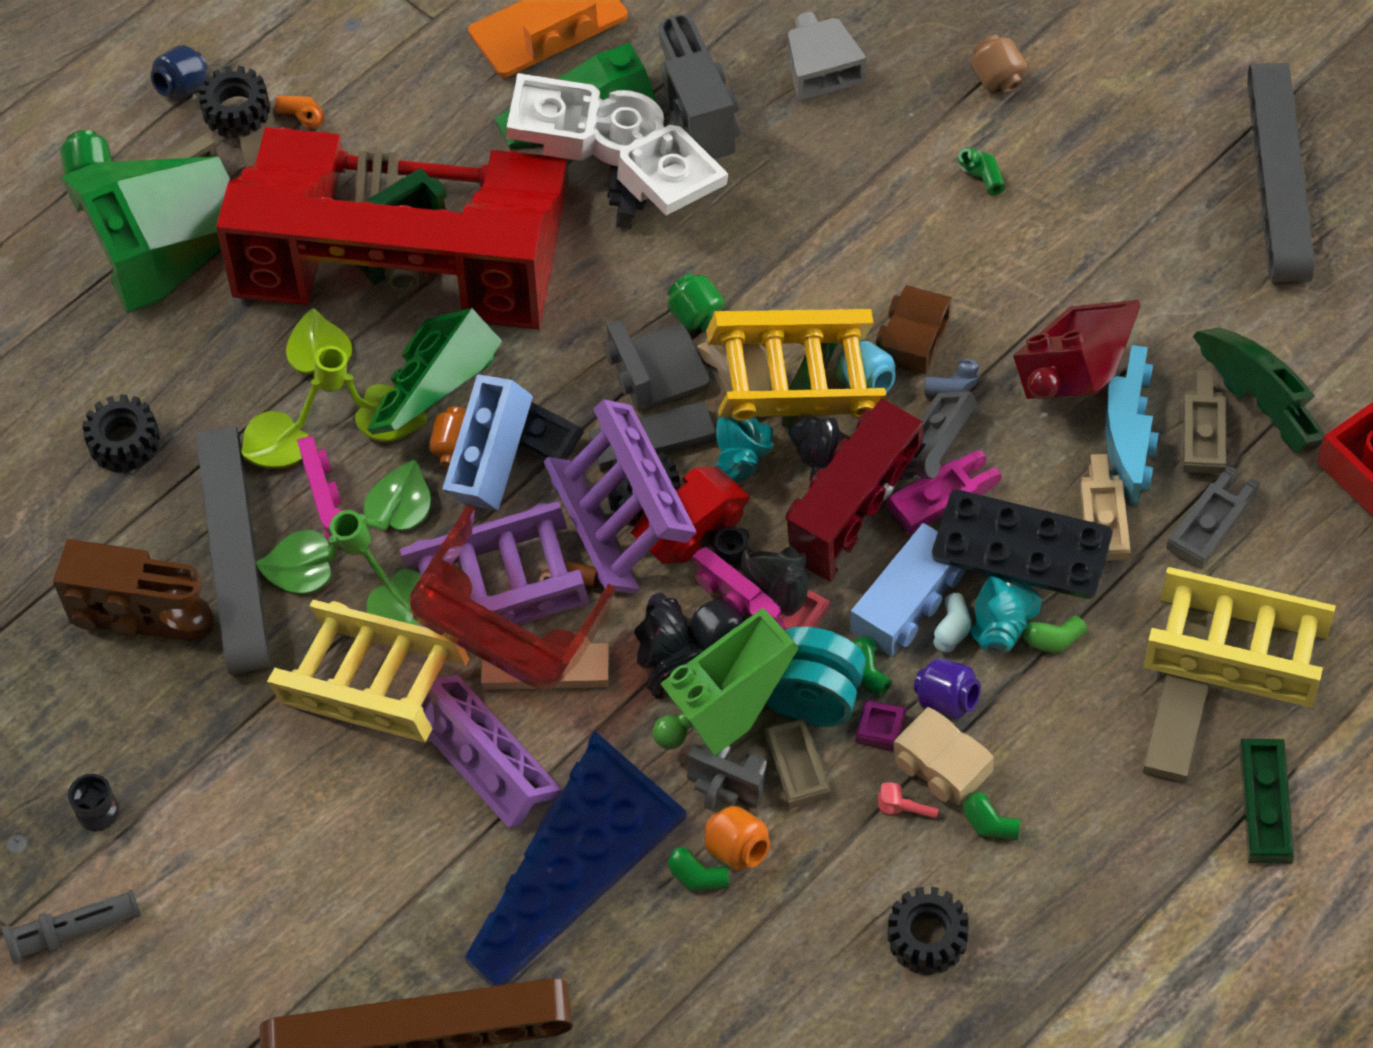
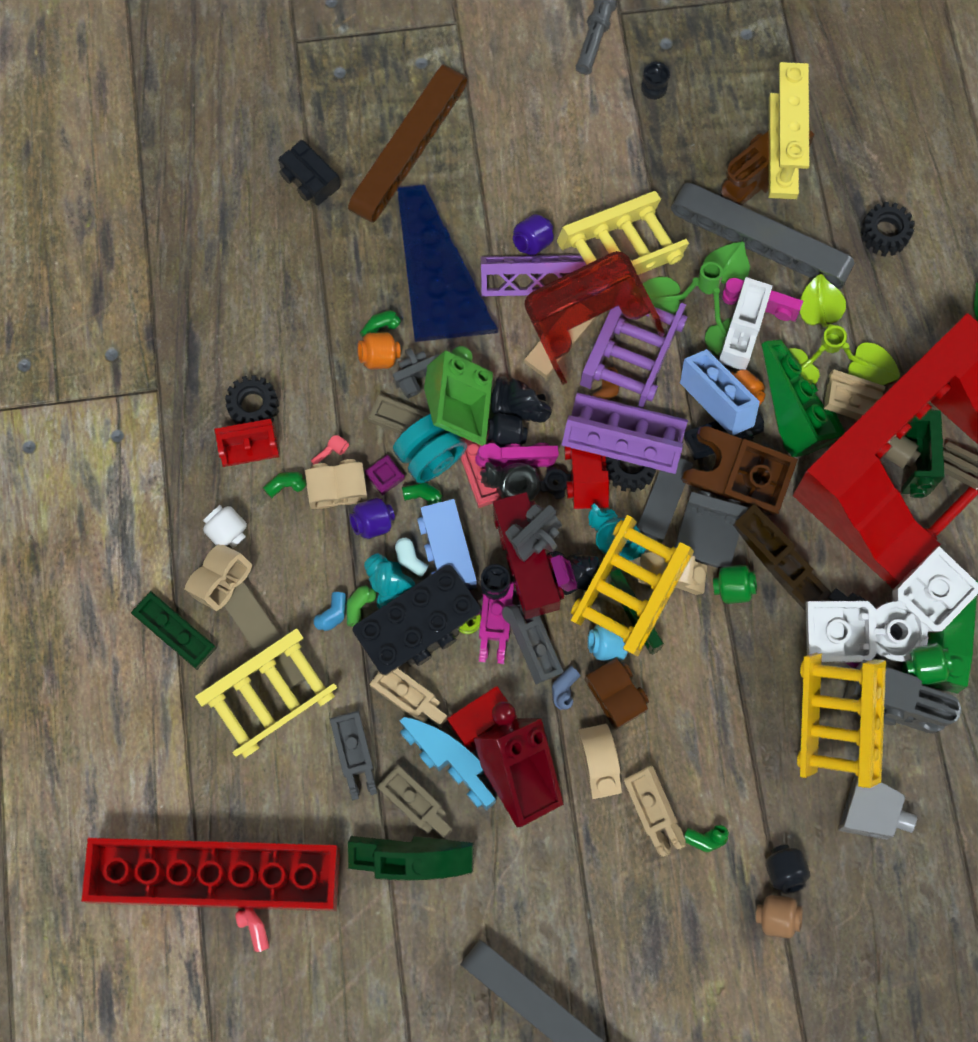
camera: 125 degrees right, 15 degrees up
(113, 552) = (789, 130): none -> light yellow fence
(375, 332) = (851, 394): none -> tan plate
(377, 471) = (745, 324): none -> white slope
(433, 783) = (533, 234): none -> dark purple head
(563, 358) = (734, 469): none -> reddish brown brick
(632, 272) = (779, 557): none -> dark brown slope
(640, 70) = (930, 664): none -> green head
(769, 69) = (870, 708): none -> yellow fence
(844, 422) = (564, 573): none -> magenta tile
(850, 463) = (537, 535): none -> dark grey hips
(908, 500) = (495, 576): none -> black wheel
(948, 85) = (787, 869): none -> black head
(984, 899) = (246, 442): none -> red hinge
(995, 293) = (600, 761): none -> tan brick
(999, 224) = (654, 810): none -> tan hinge
(1061, 422) = (476, 718): none -> red hinge
(1087, 648) = (334, 615): none -> dark azure arm
(1103, 832) = (225, 526): none -> white head
(1167, 787) = (218, 577): none -> tan brick

